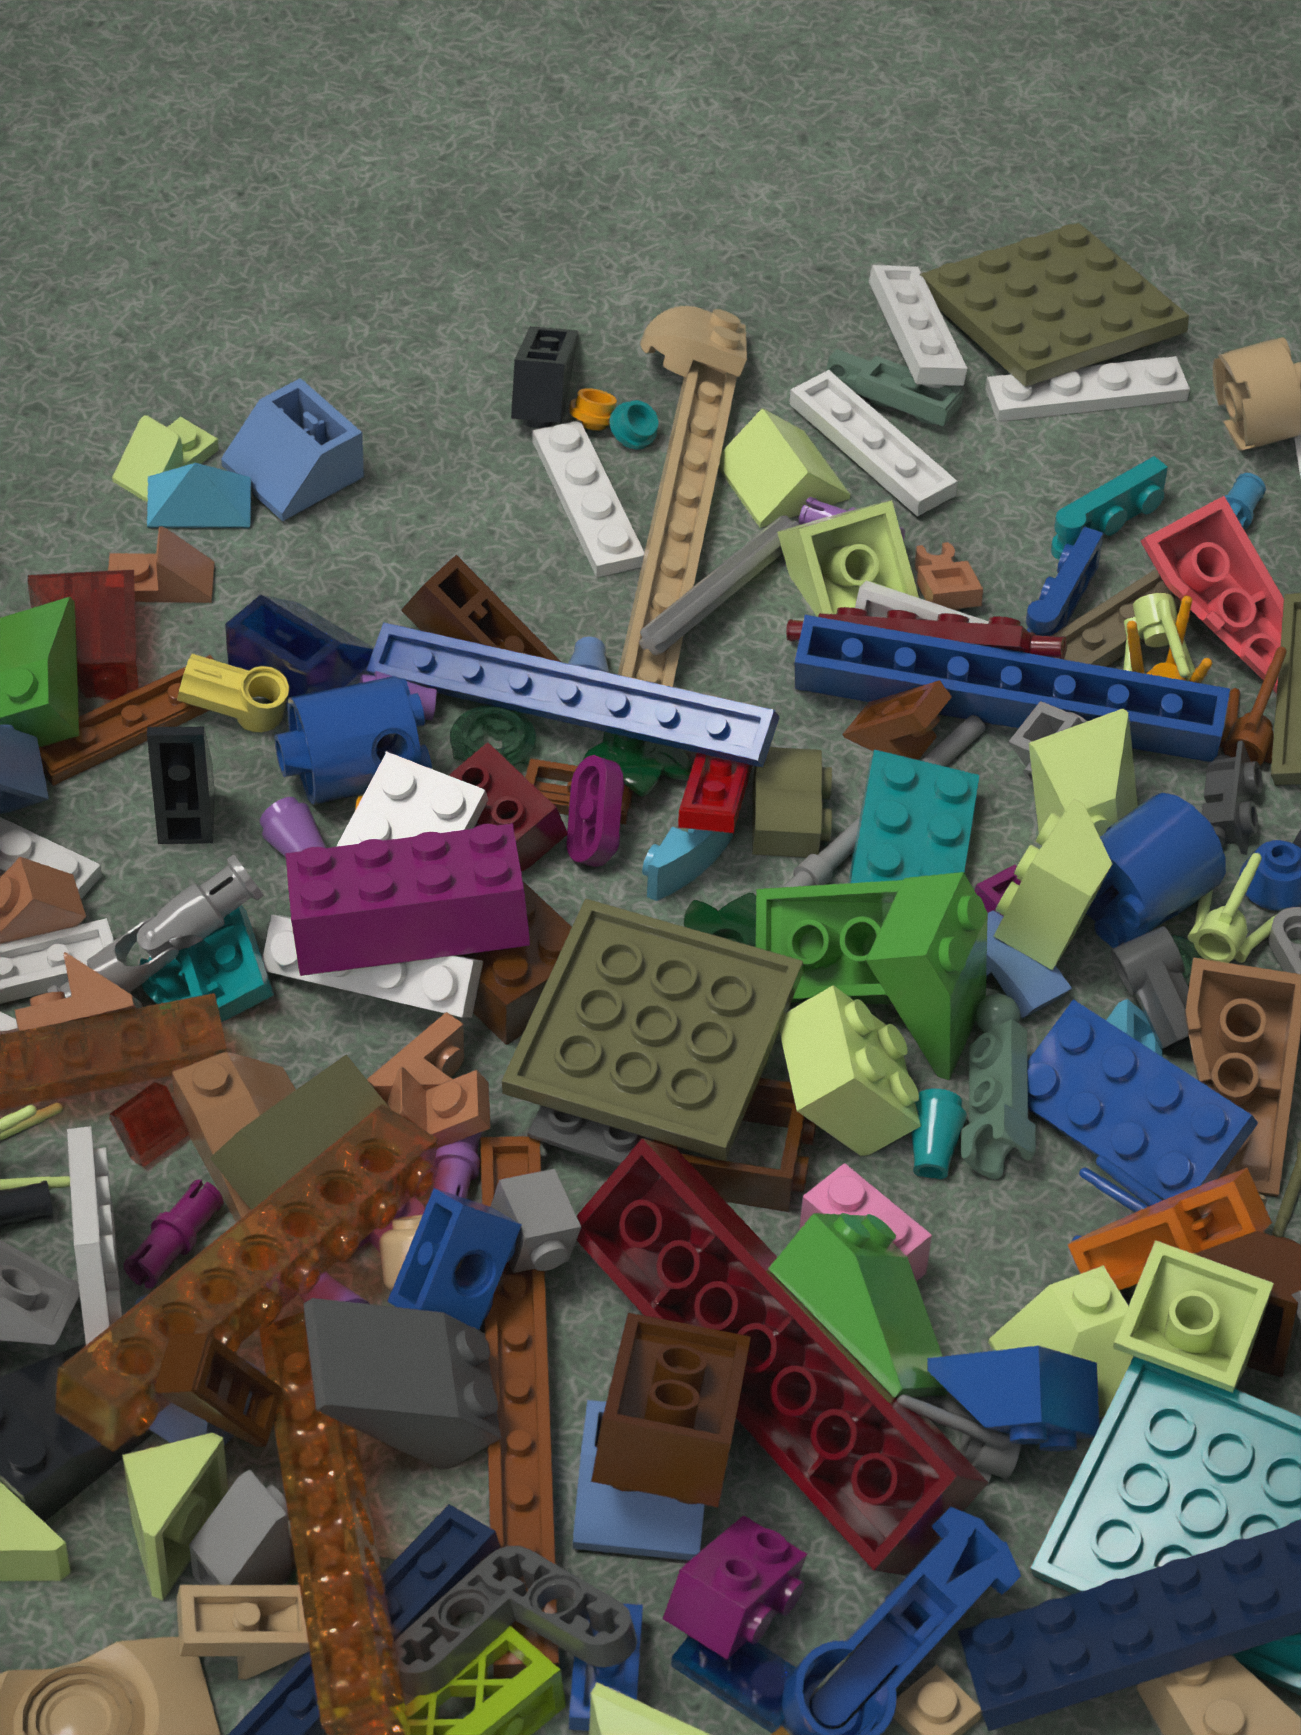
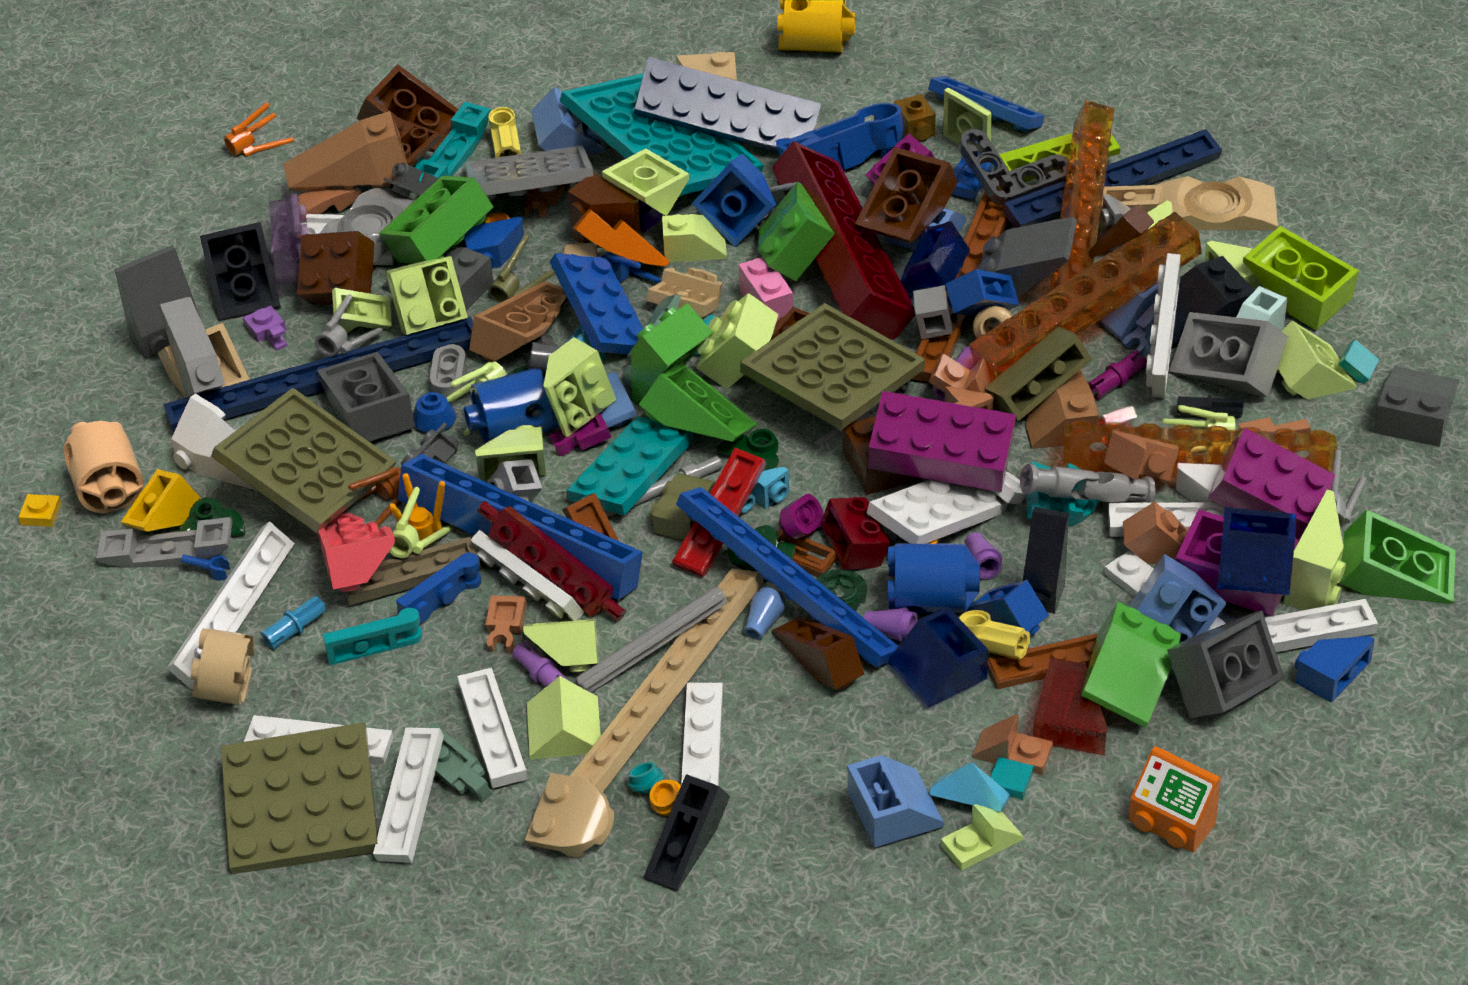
camera: 155 degrees left, 5 degrees down
(142, 533) = (1013, 776): none -> teal tile
(240, 752) = (1013, 605): none -> blue slope
(572, 1332) = (935, 259): none -> clear blue slope
(1006, 1214) = (695, 287): none -> tan slope

